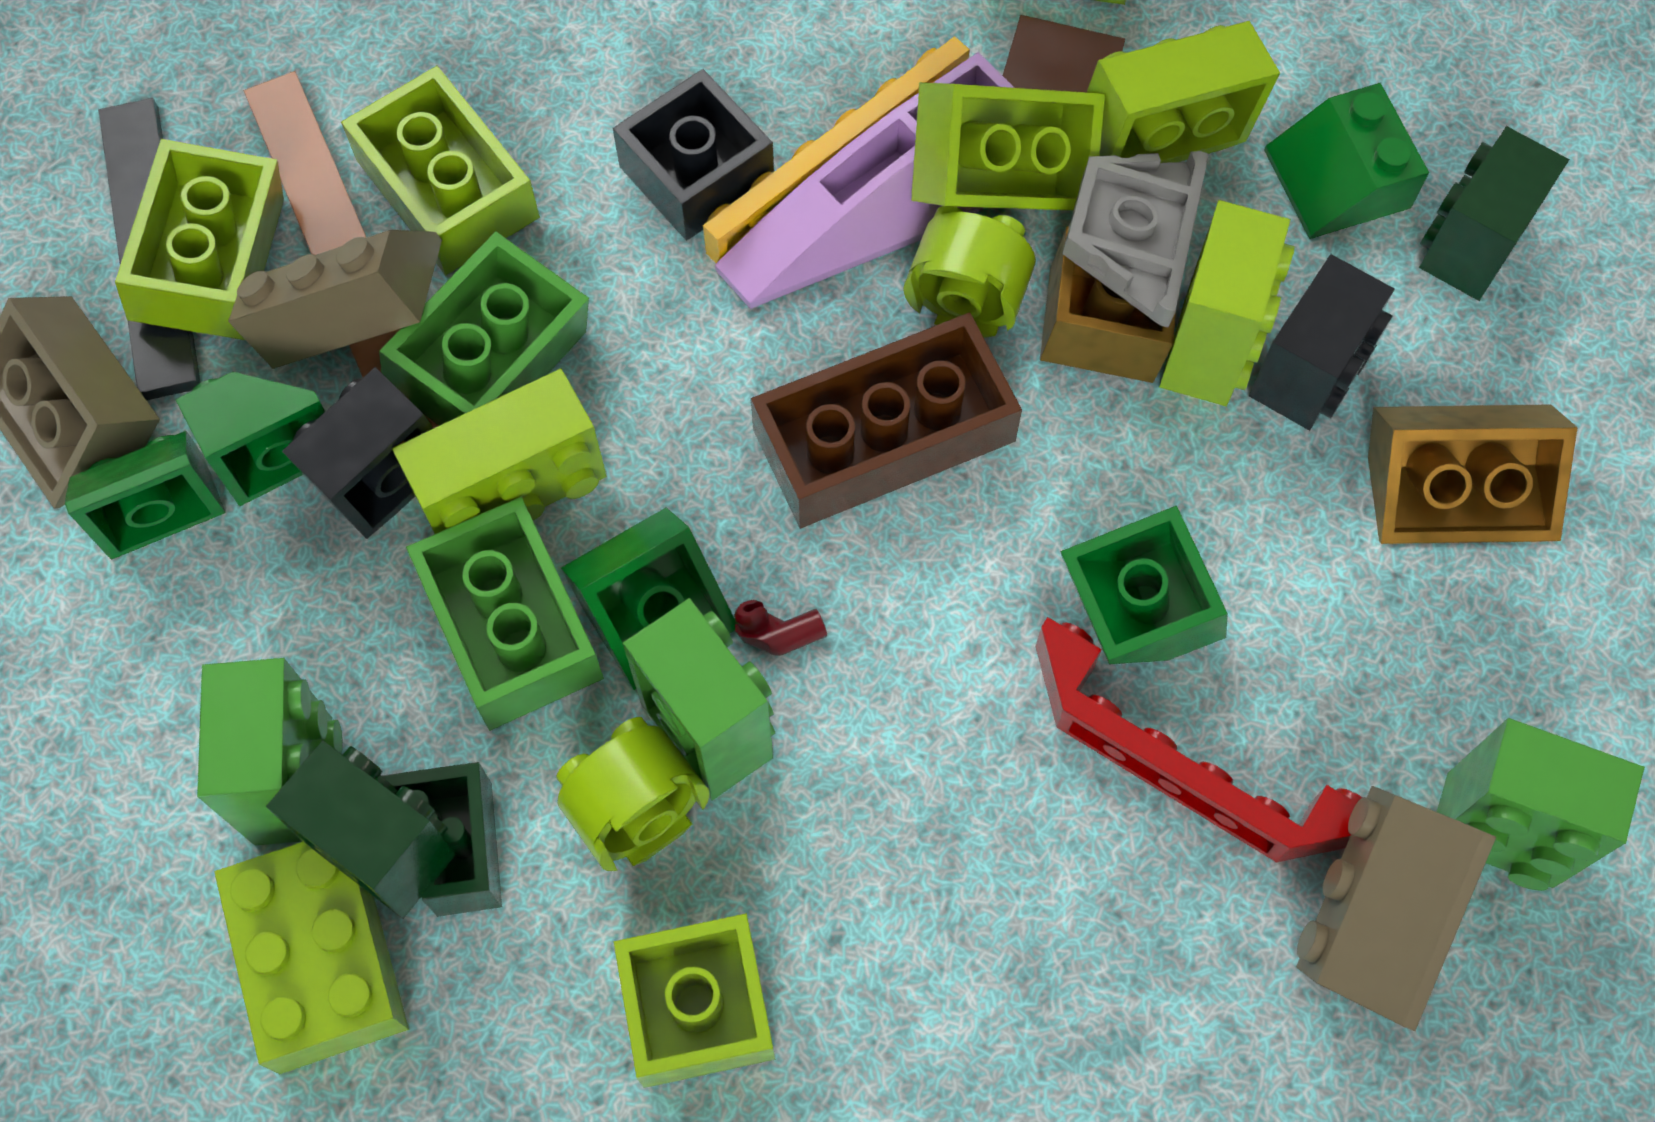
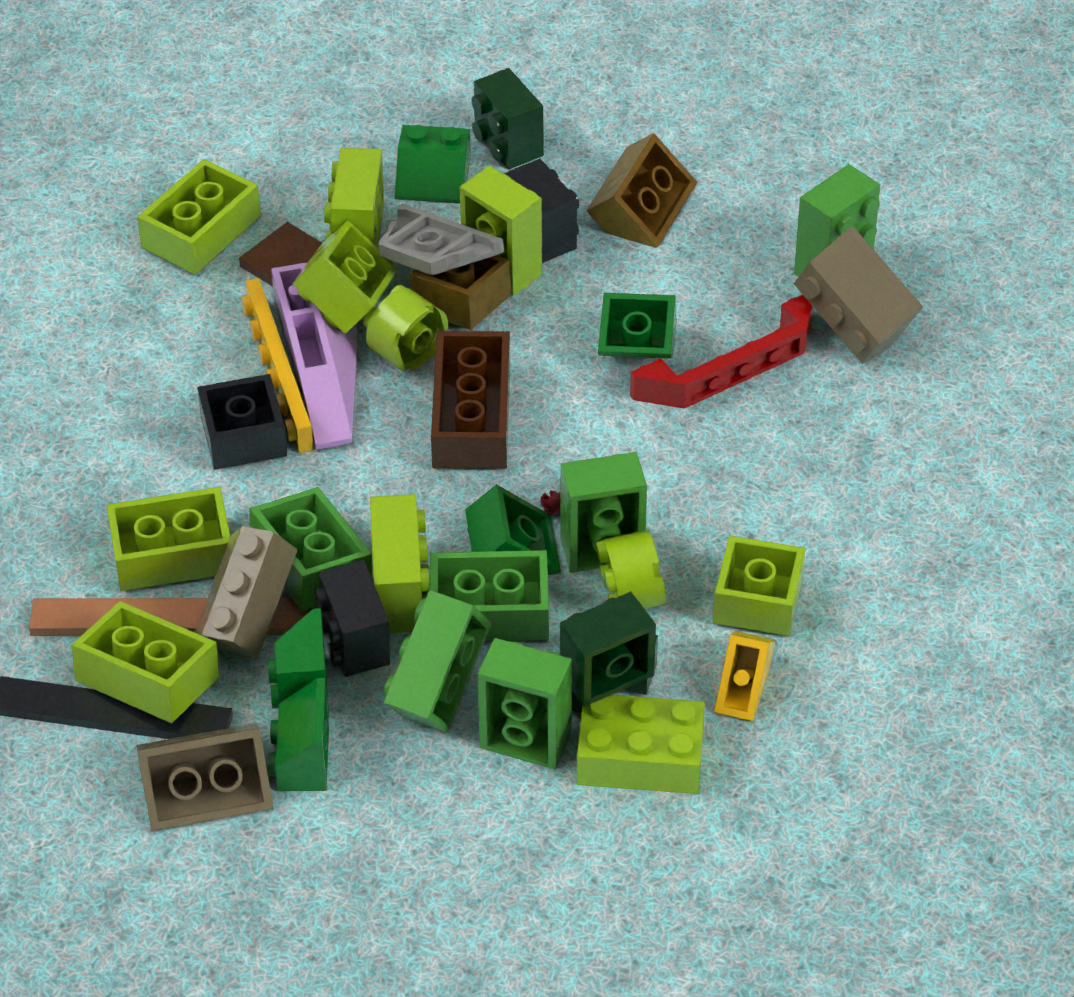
camera: 65 degrees left, 20 degrees down
(300, 596) = (437, 661): none -> bright green brick
(520, 1050) = (744, 675): none -> yellow slope

